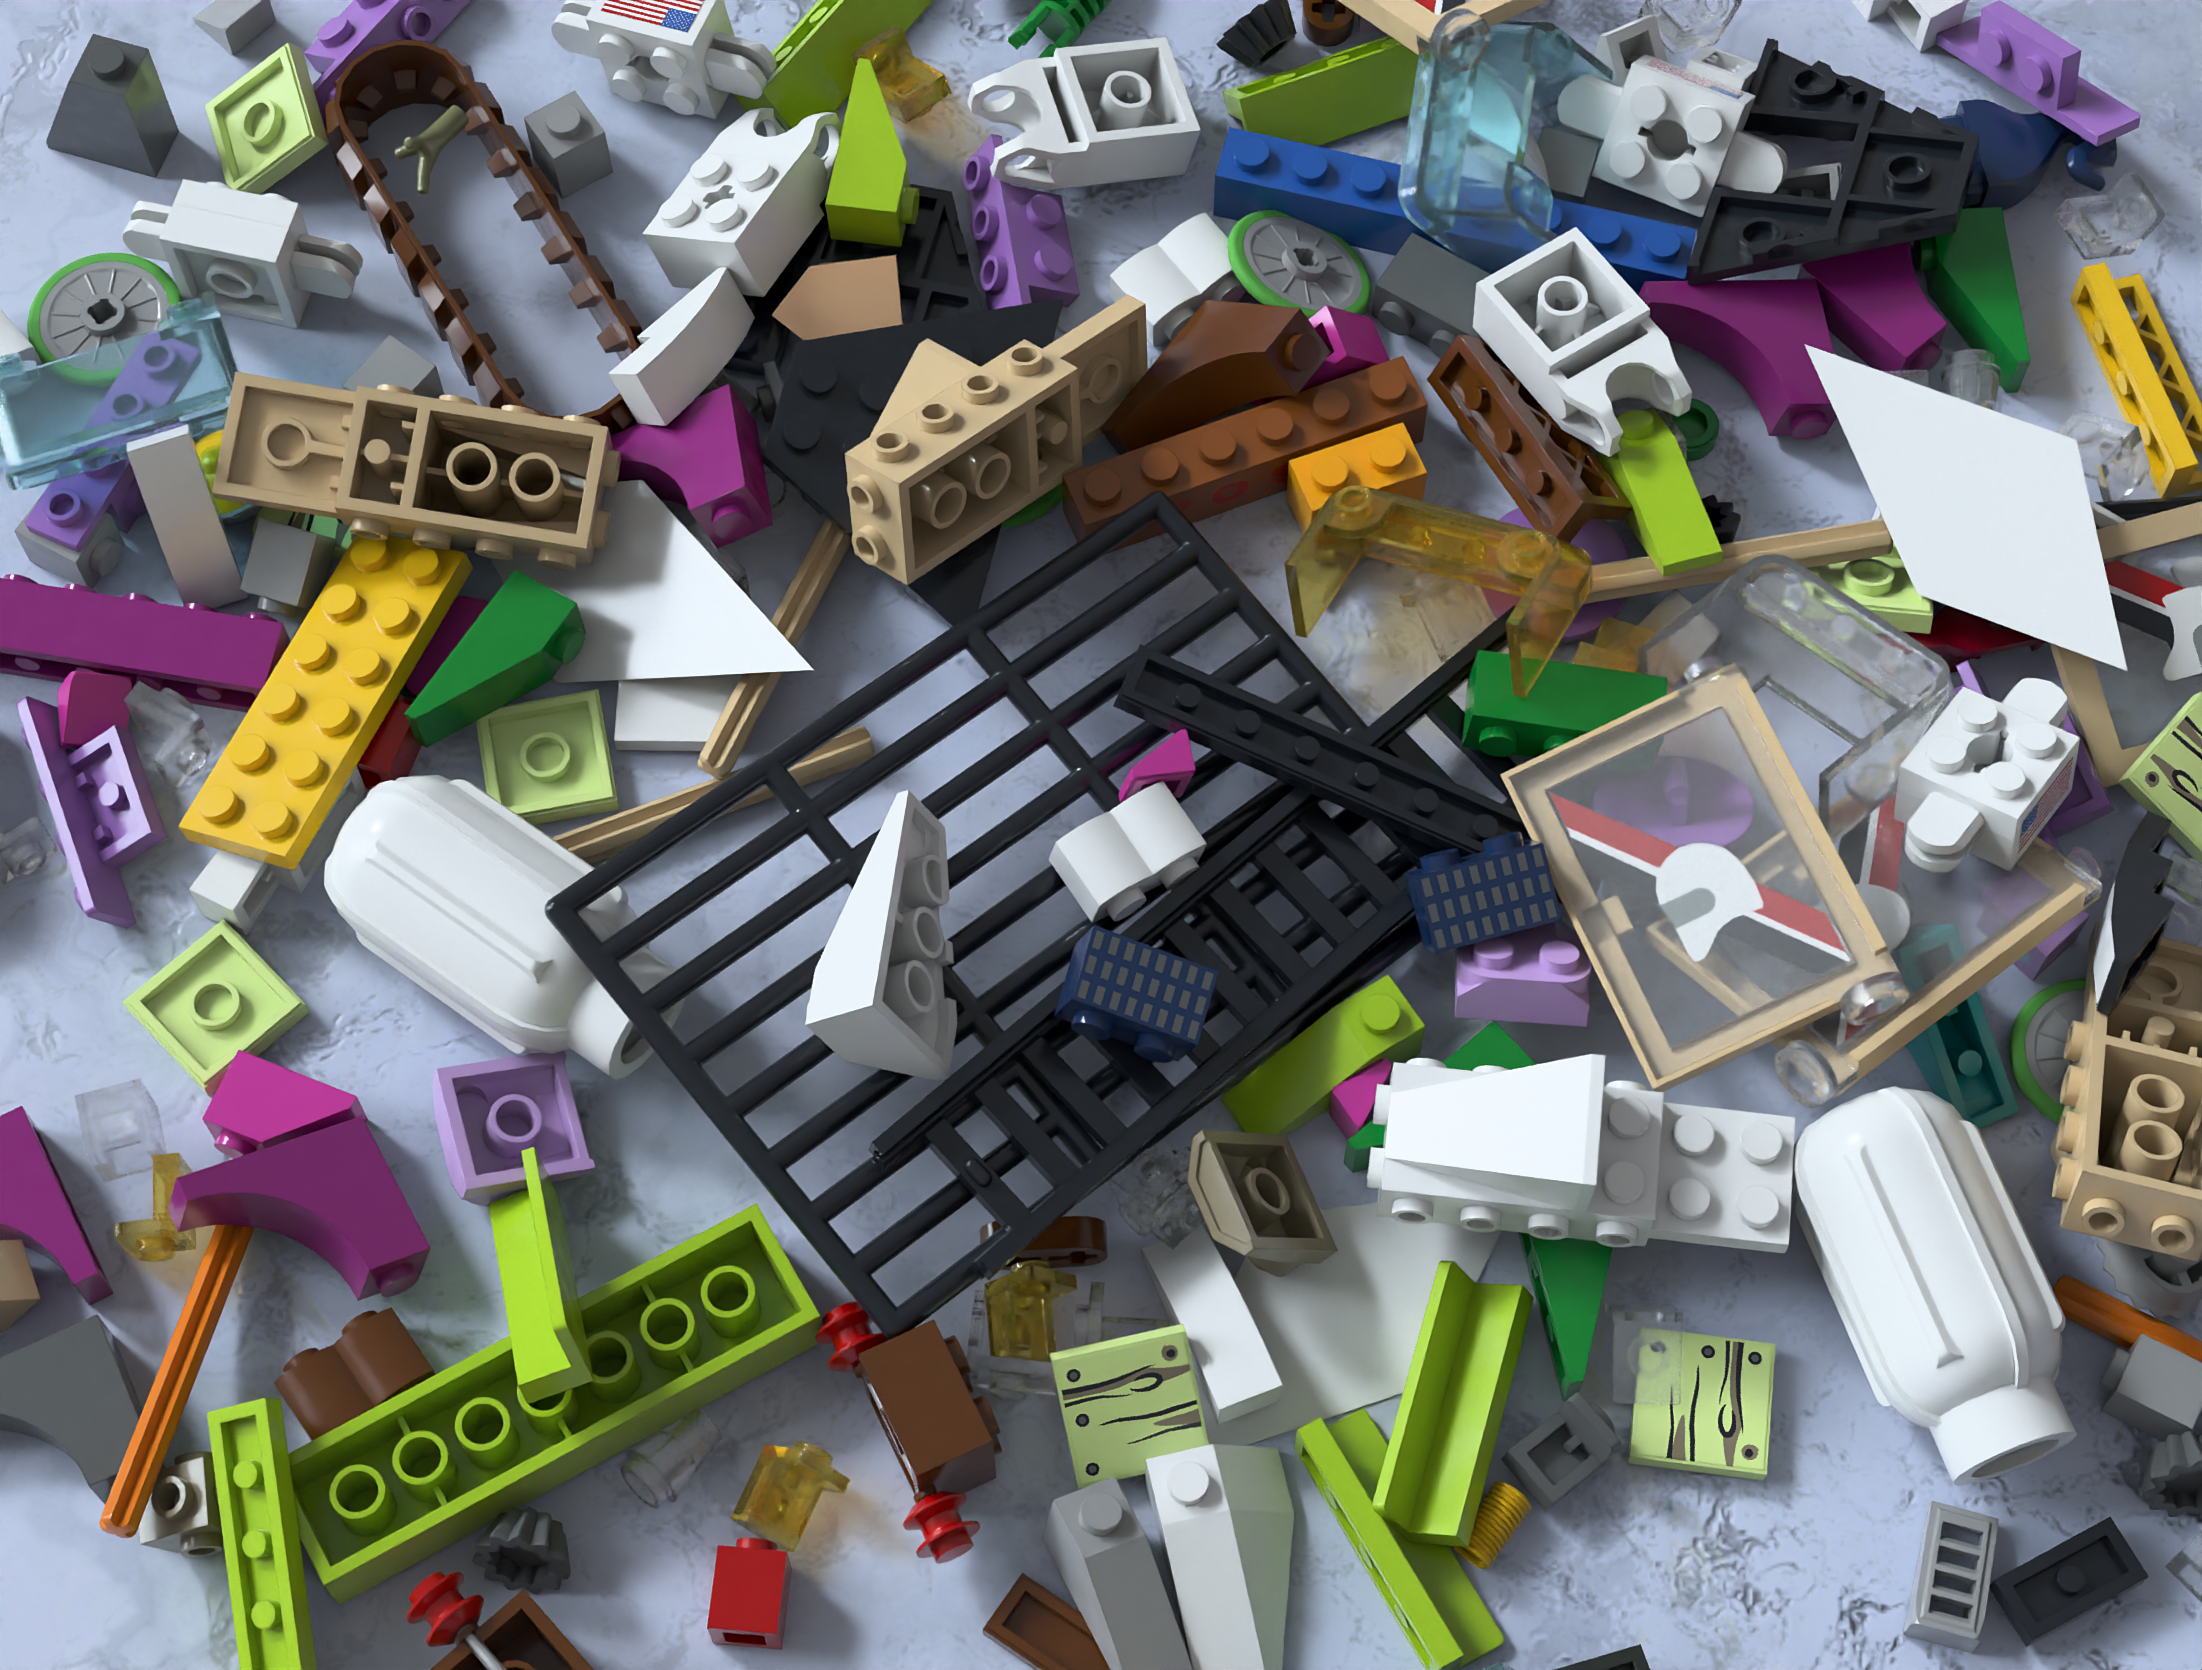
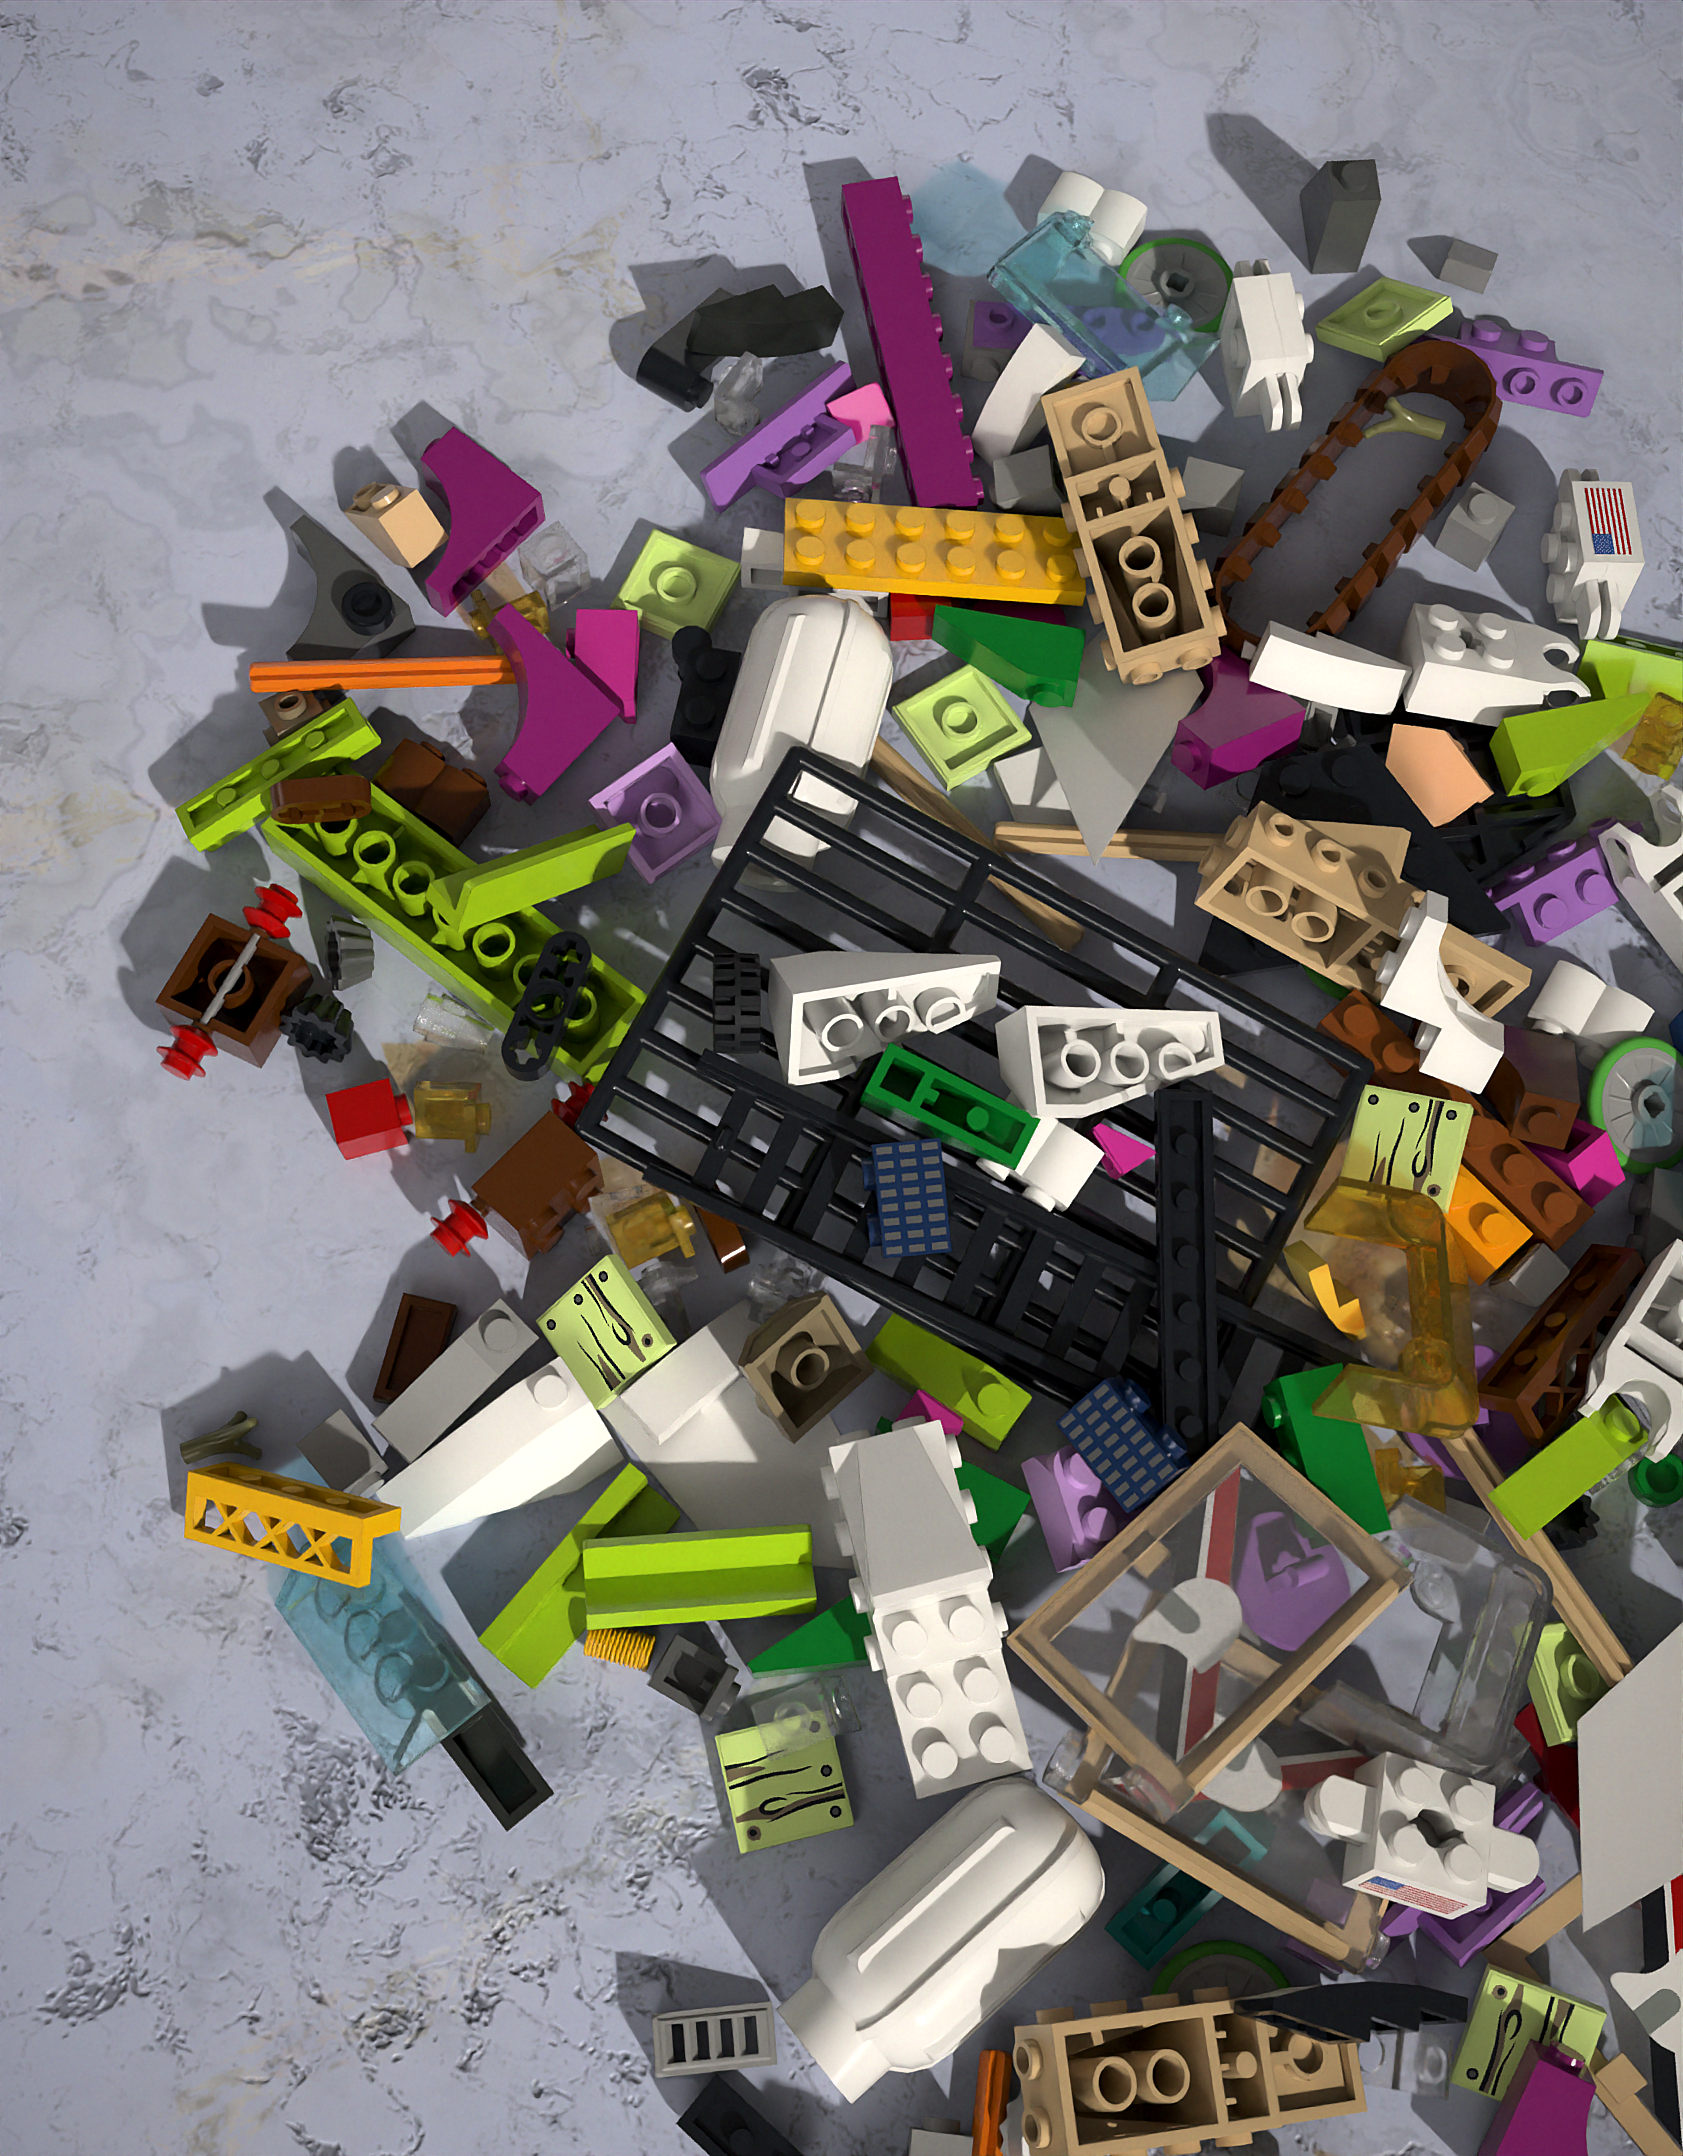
camera: 65 degrees right, 5 degrees up
(82, 1362) = (368, 609): none -> black tile
(333, 1491) = (320, 799): none -> reddish brown beam
(383, 1018) = (705, 693): none -> black hinge
(609, 1614) = (319, 1028): none -> black piece
(696, 1272) = (546, 1046): none -> black beam
(840, 1082) = (736, 1003): none -> black tyre
(1049, 915) = (948, 1108): none -> green slope
(1057, 746) = (1096, 1058): none -> white wedge
(1169, 398) = (1454, 1037): none -> white arch
(1260, 497) = (1408, 1142): none -> yellowish green tile
(1369, 652) = (1328, 1296): none -> light yellow slope
(1442, 449) = (1530, 1275): none -> light grey slope

